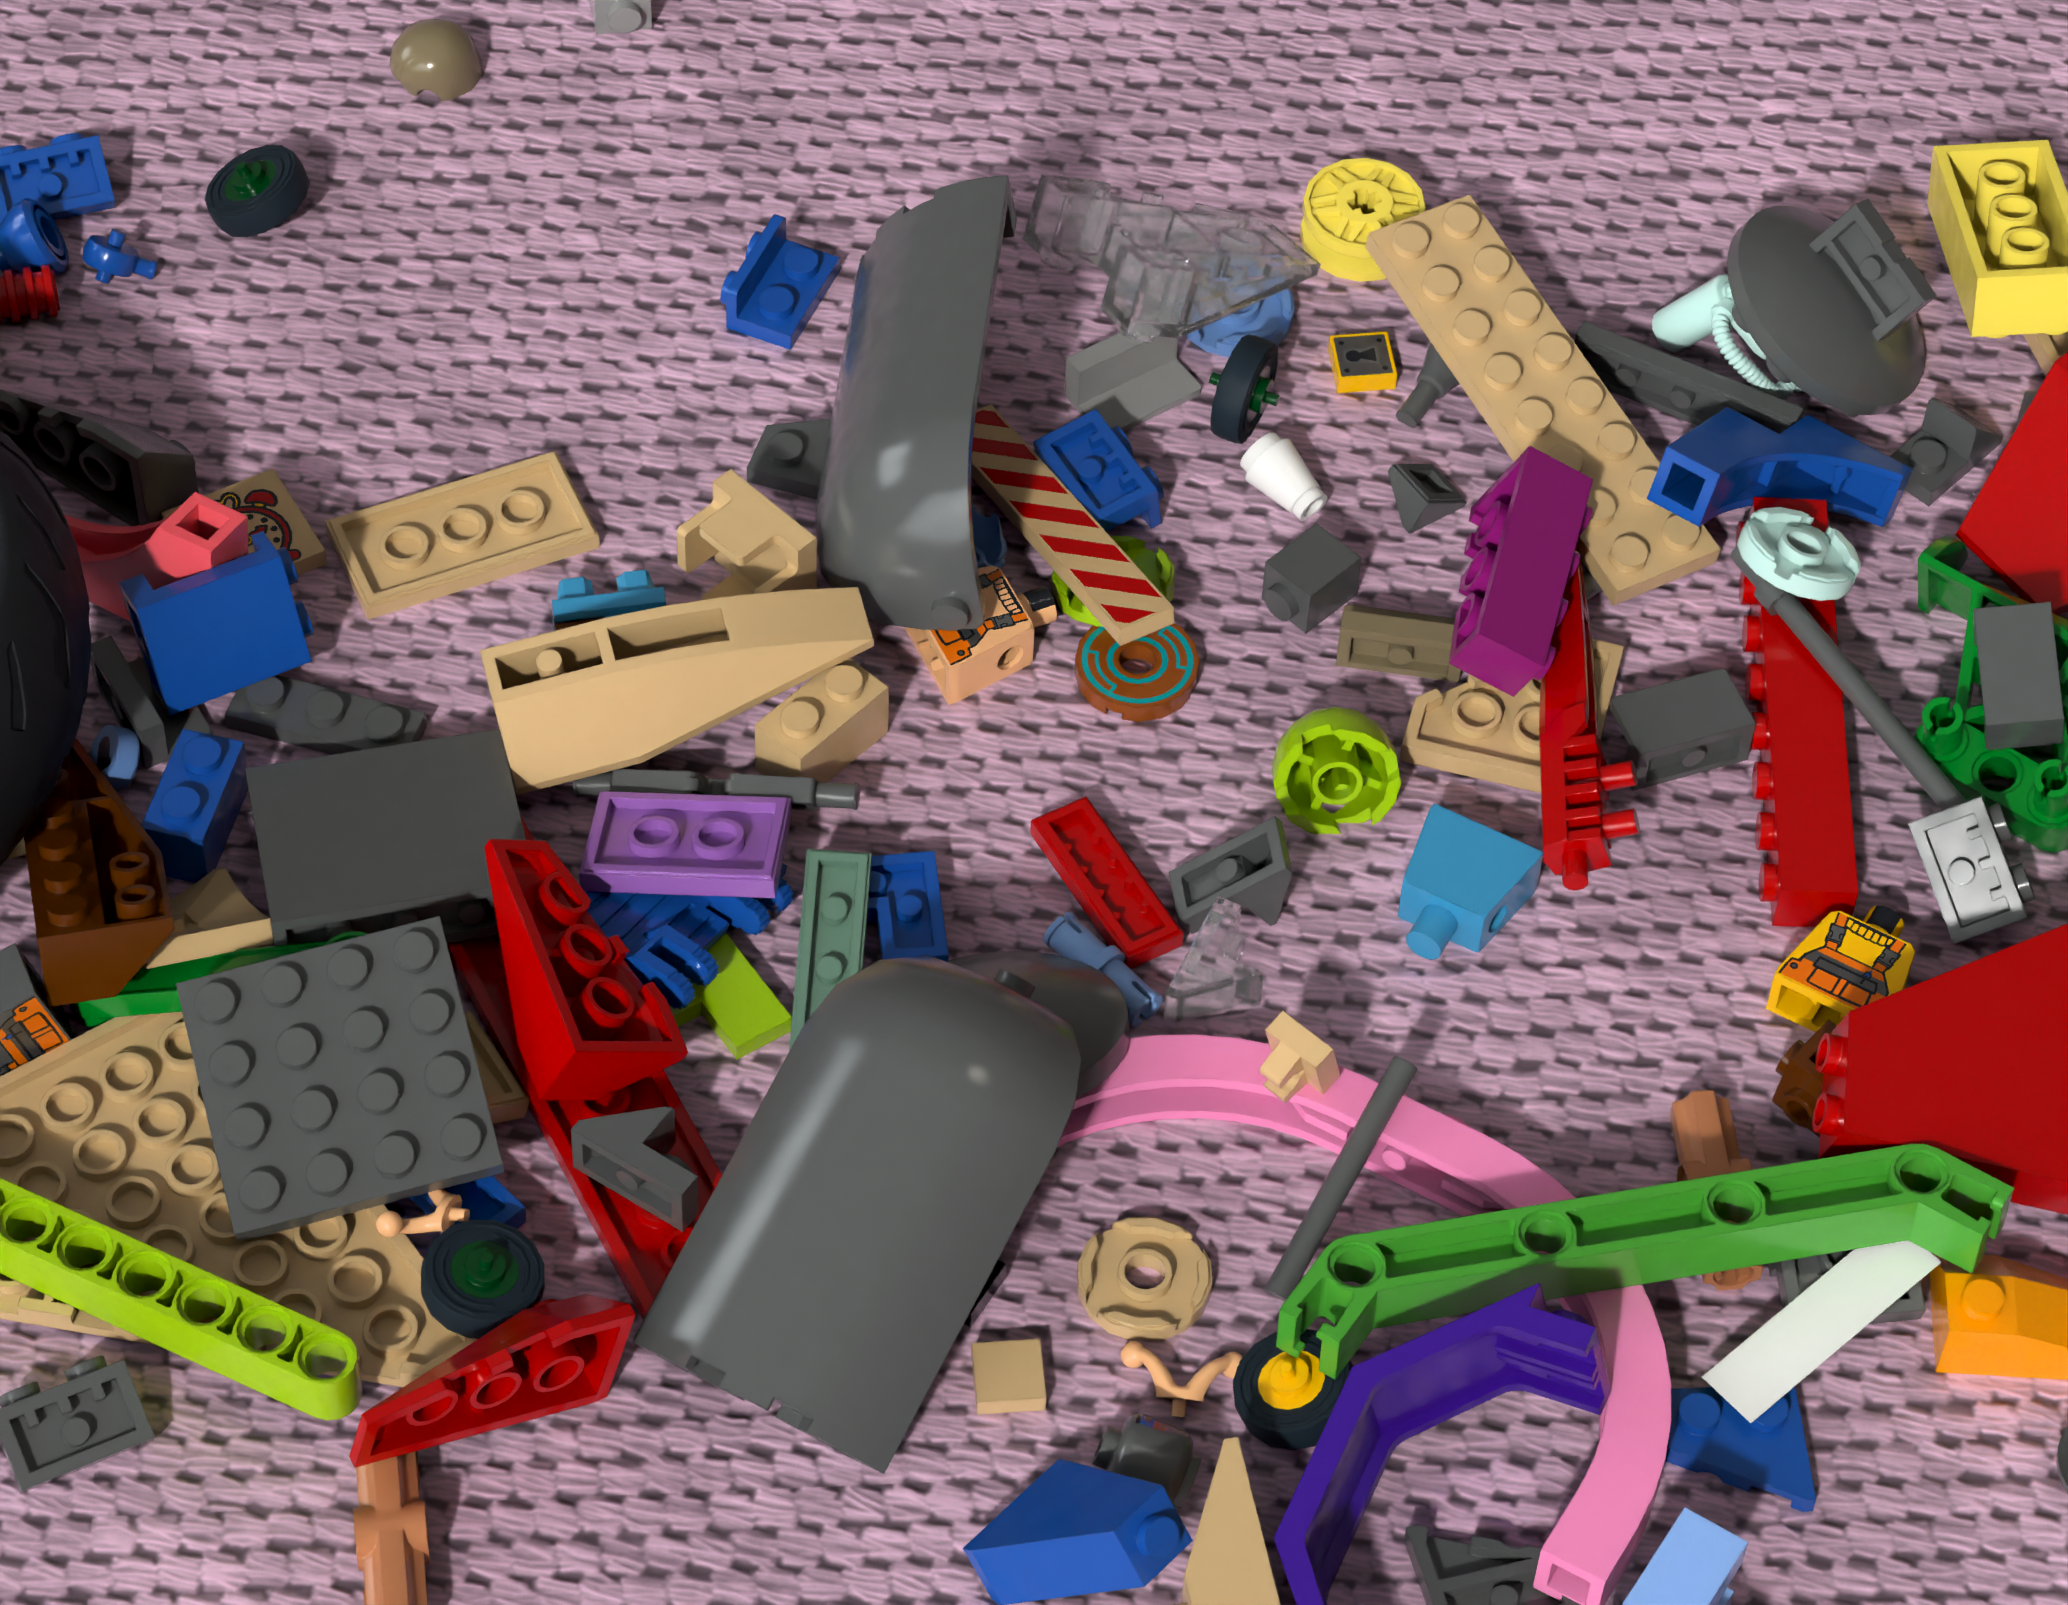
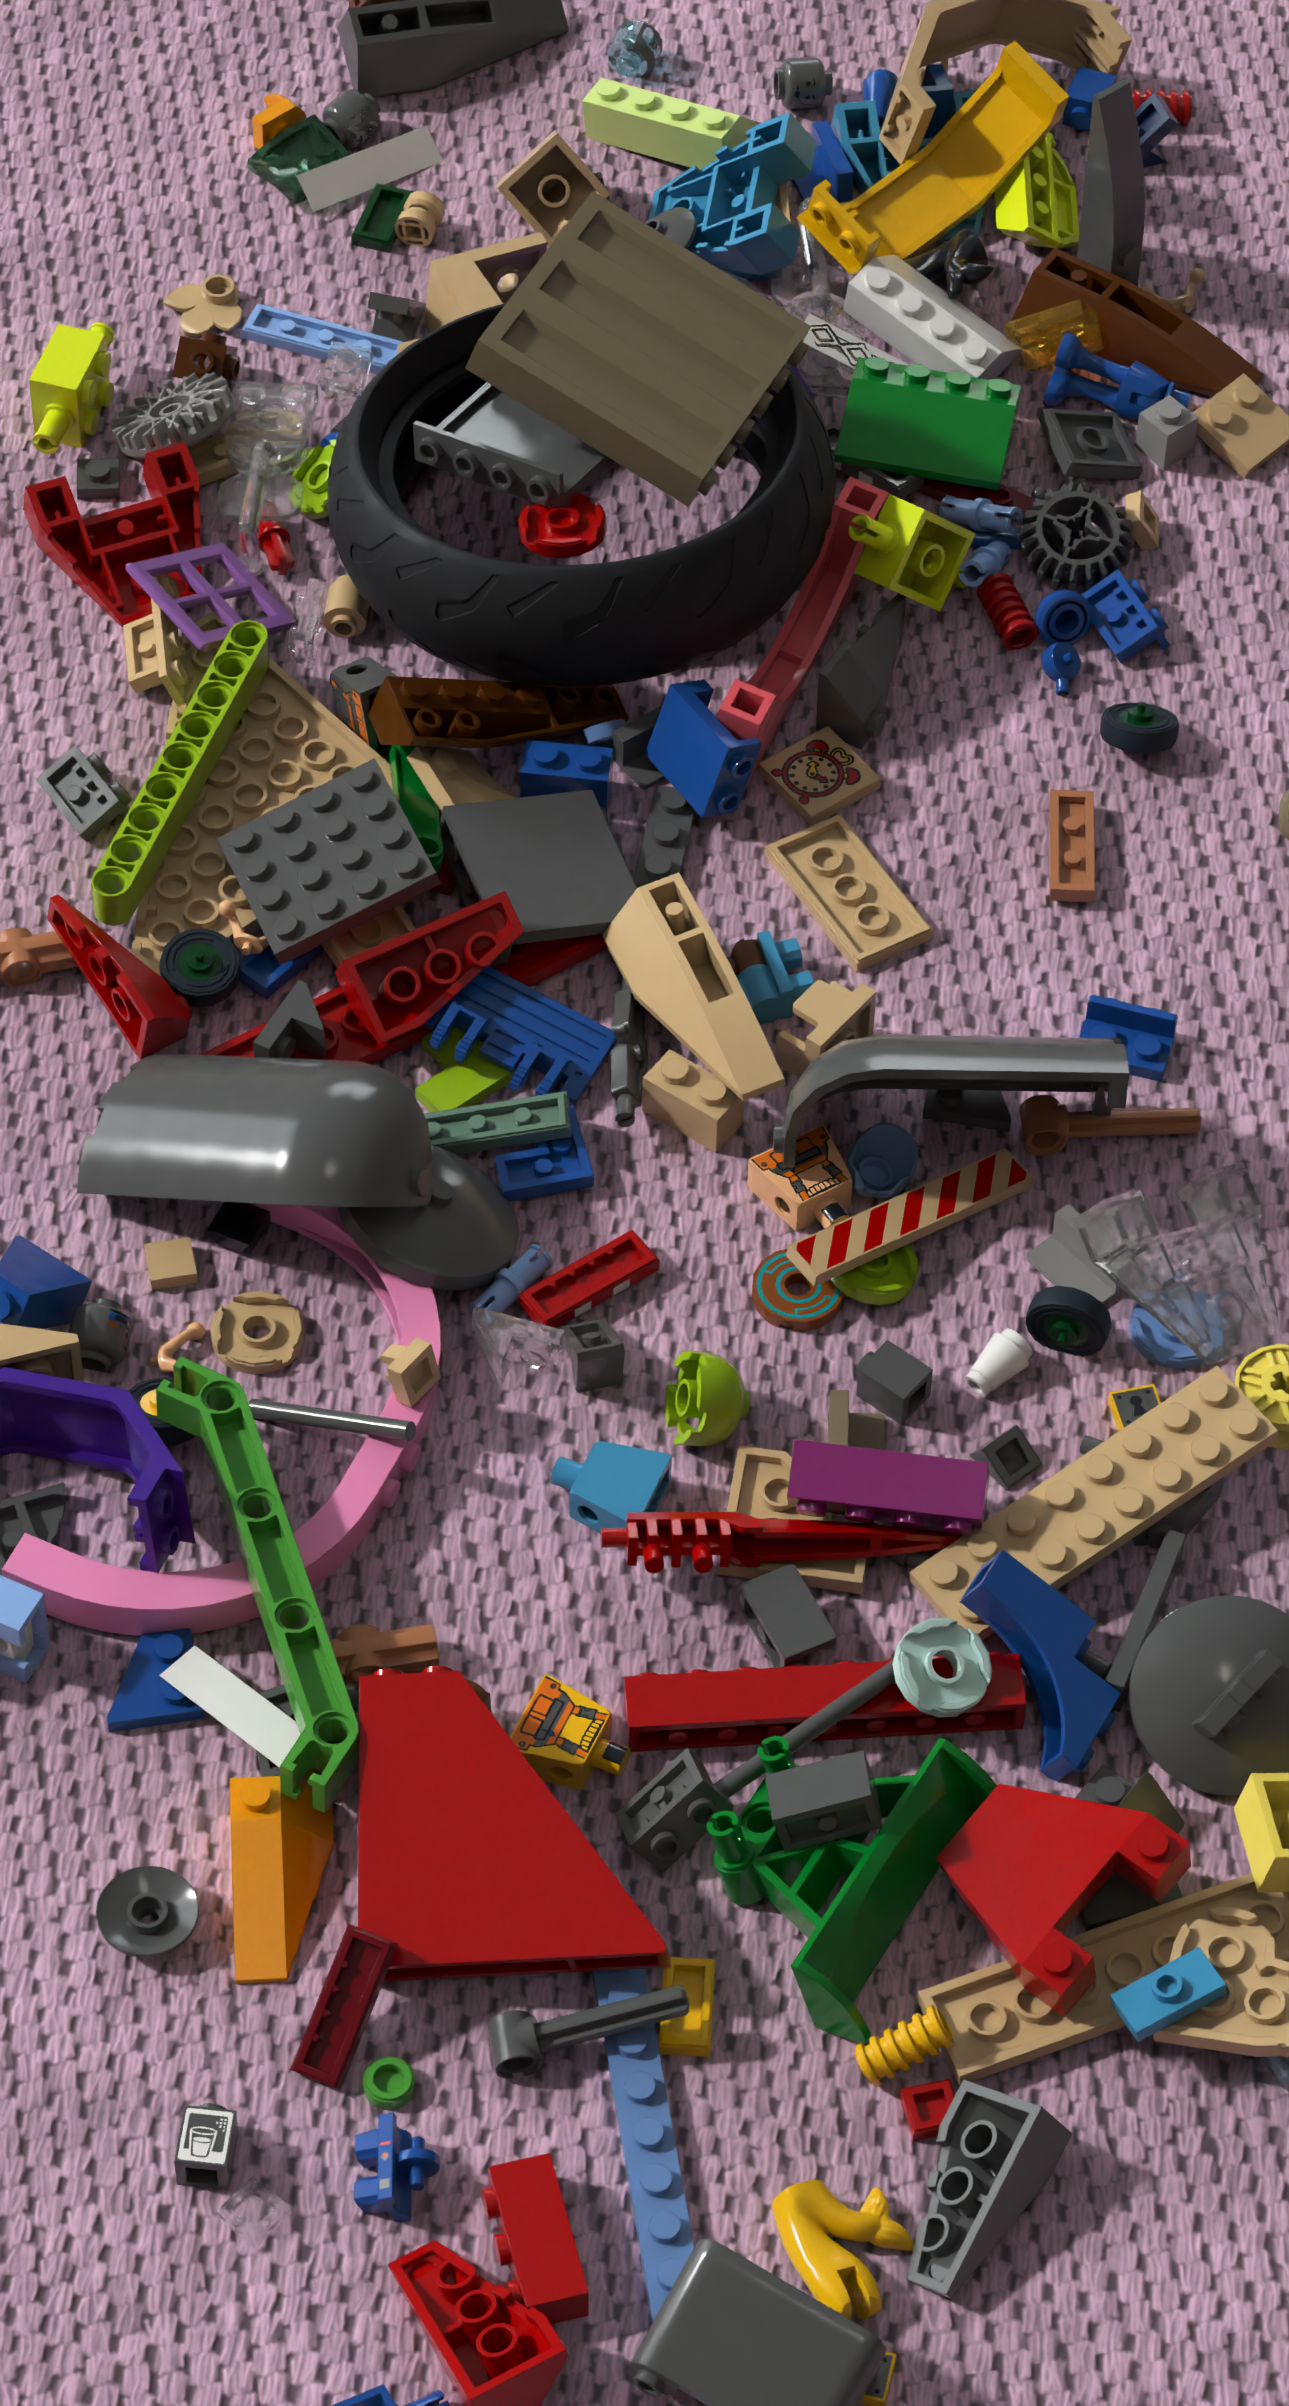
camera: 85 degrees right, 0 degrees up
(439, 291) = (1071, 846): none -> nougat plate
(686, 844) = (563, 1028): medium lavender tile -> none
(1101, 471) = (969, 1245): blue bracket -> none

